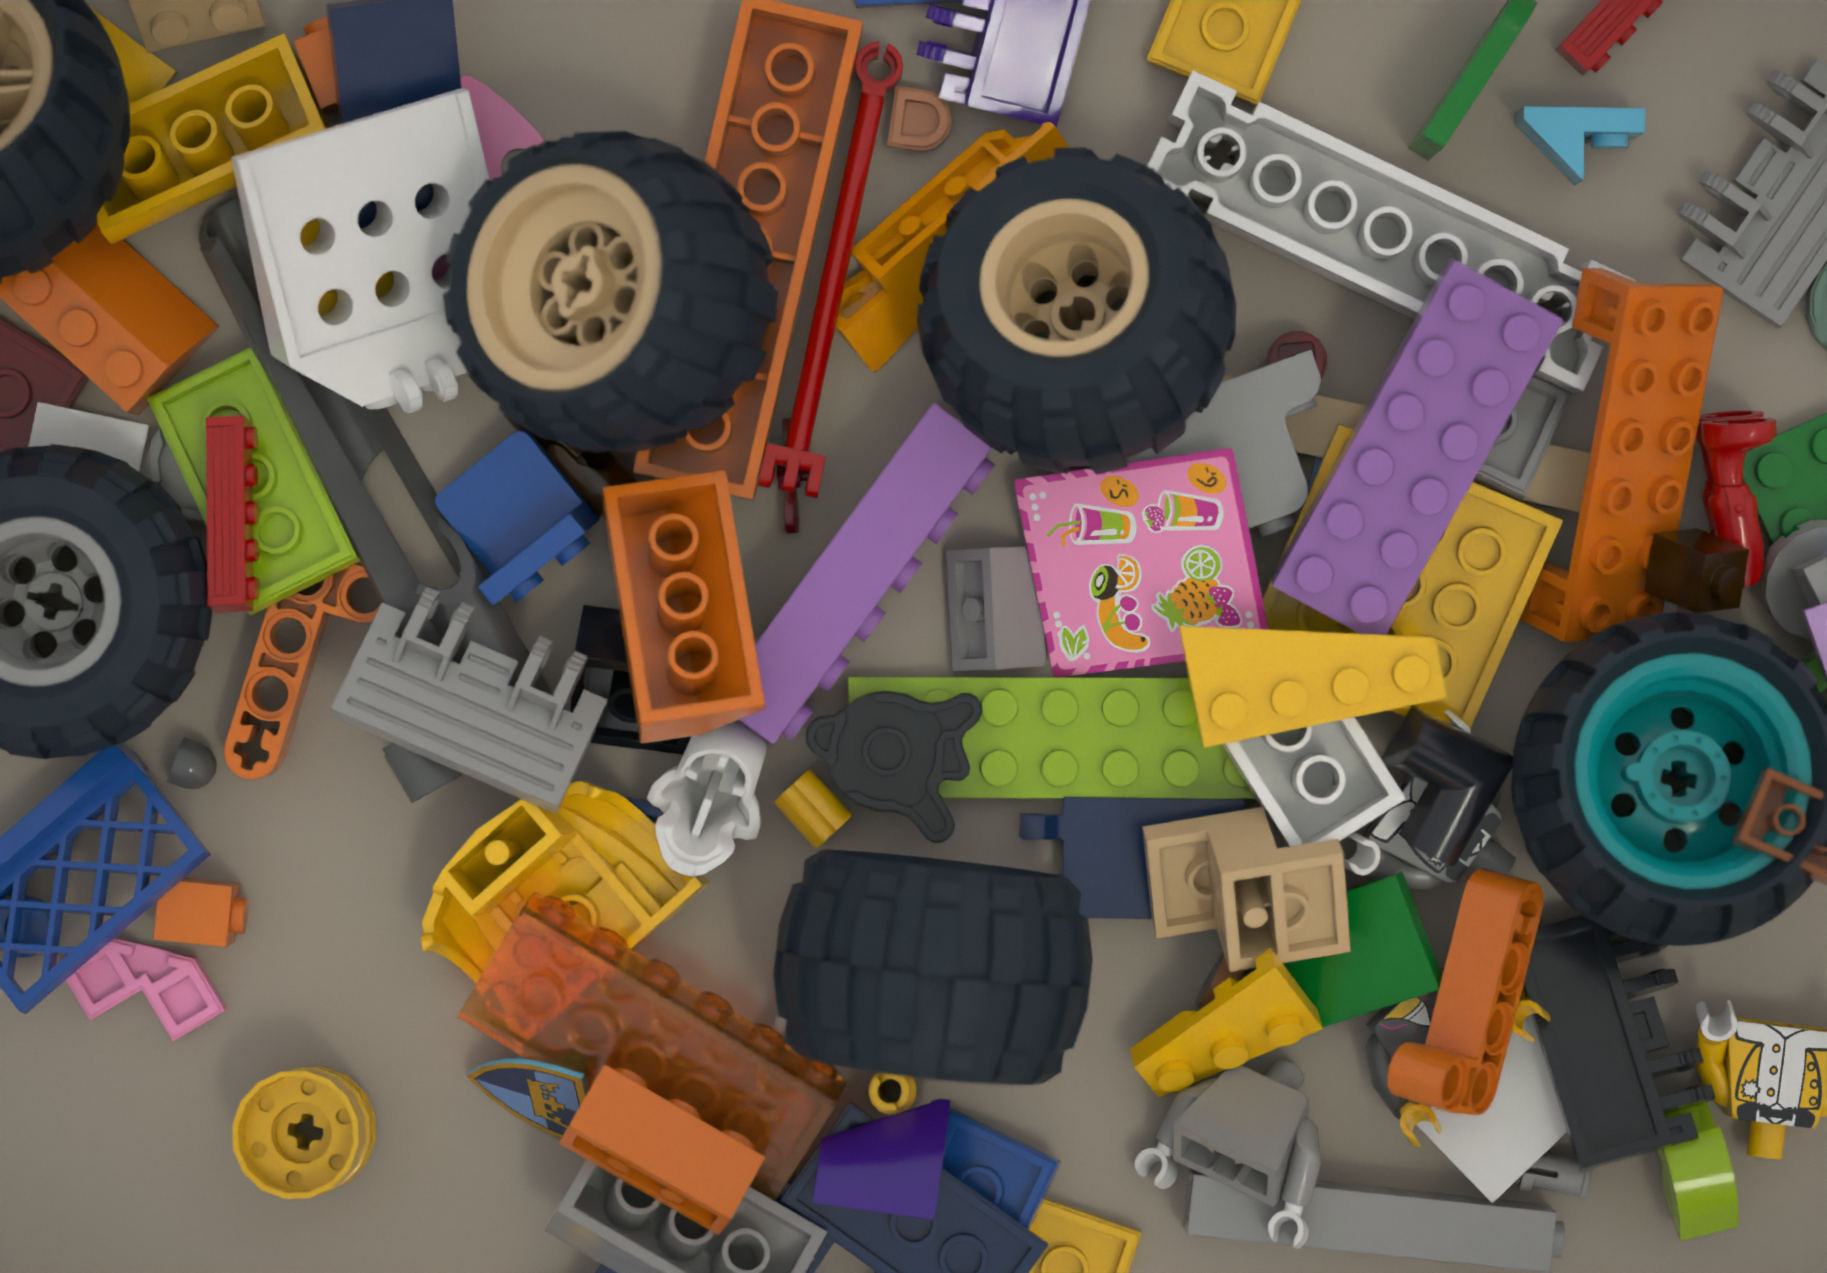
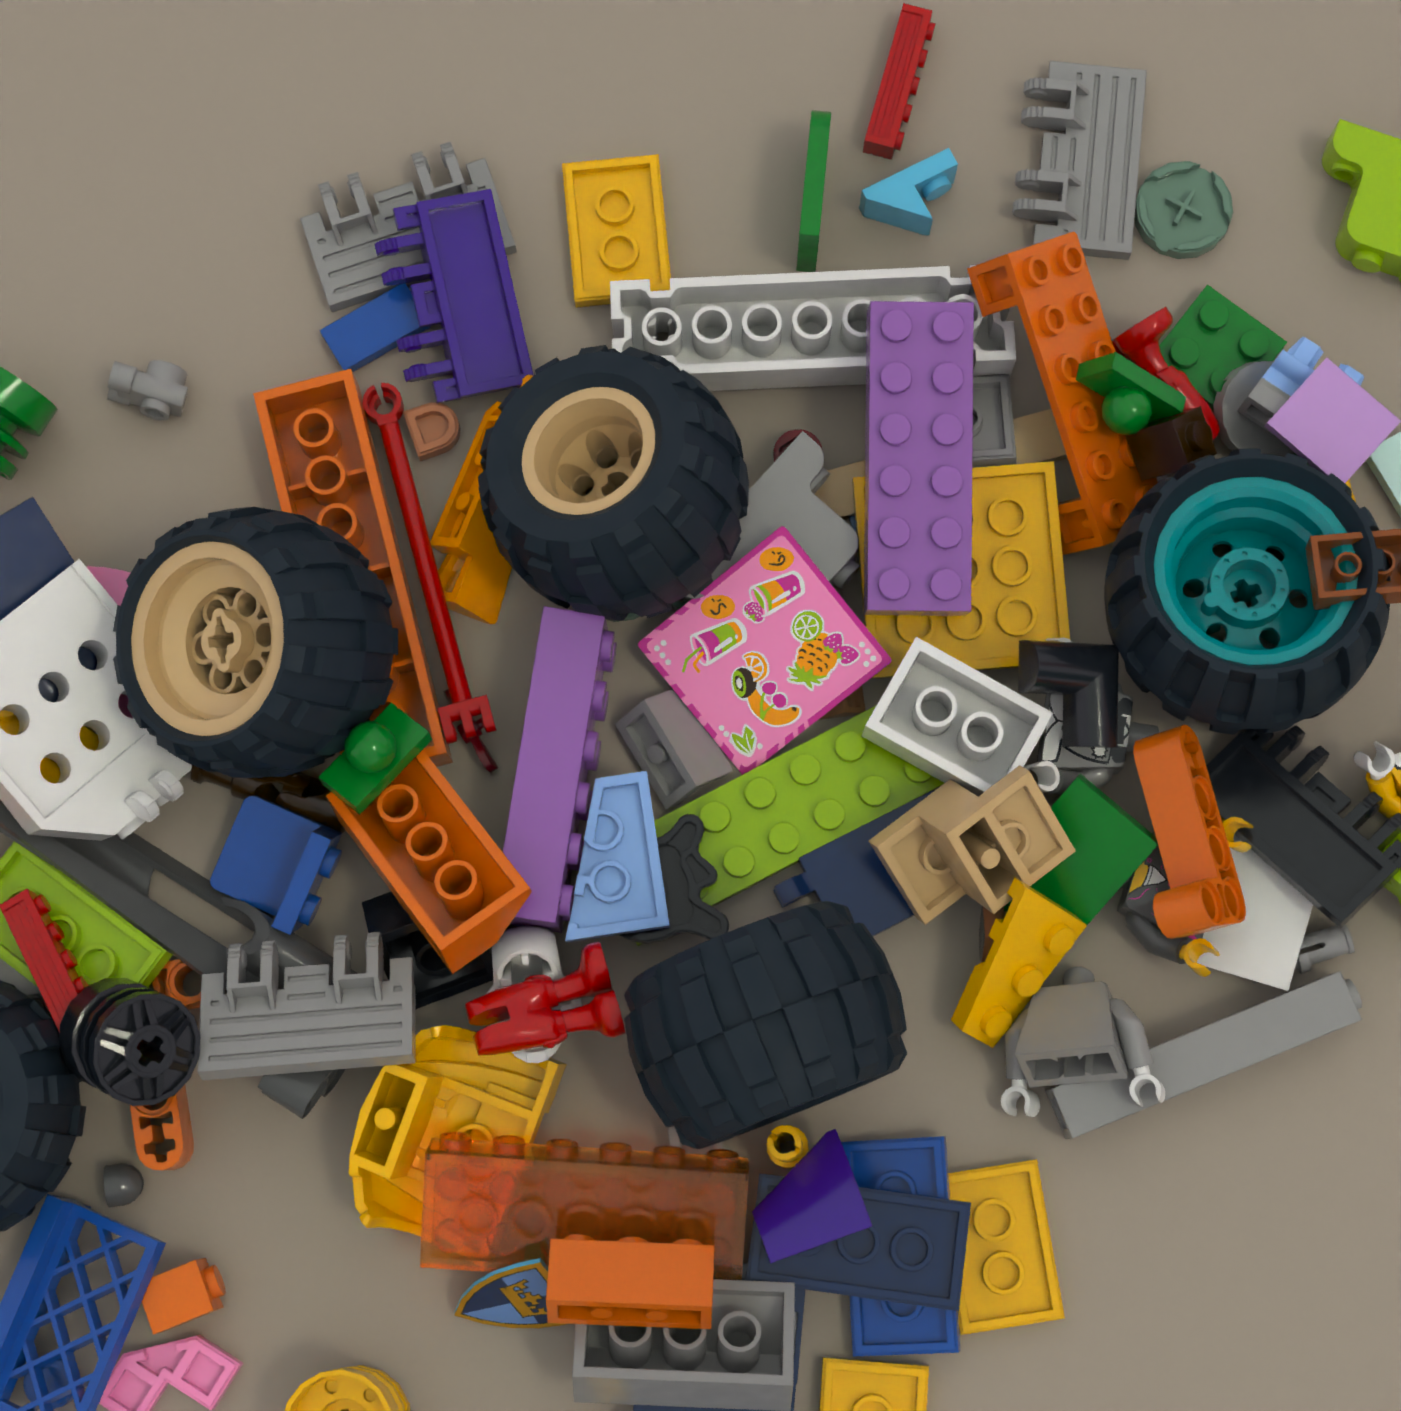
camera: 20 degrees left, 10 degrees down
(276, 639) = (103, 1035): none -> black wheel
(674, 475) = (374, 757): none -> green tile
(701, 821) = (531, 1003): none -> red piece
(812, 808) = (622, 964): yellow piece -> none
(872, 713) = (620, 863): none -> light blue wing
(1290, 680) = (915, 670): yellow wing -> none
(1678, 500) = (1130, 393): none -> green tile

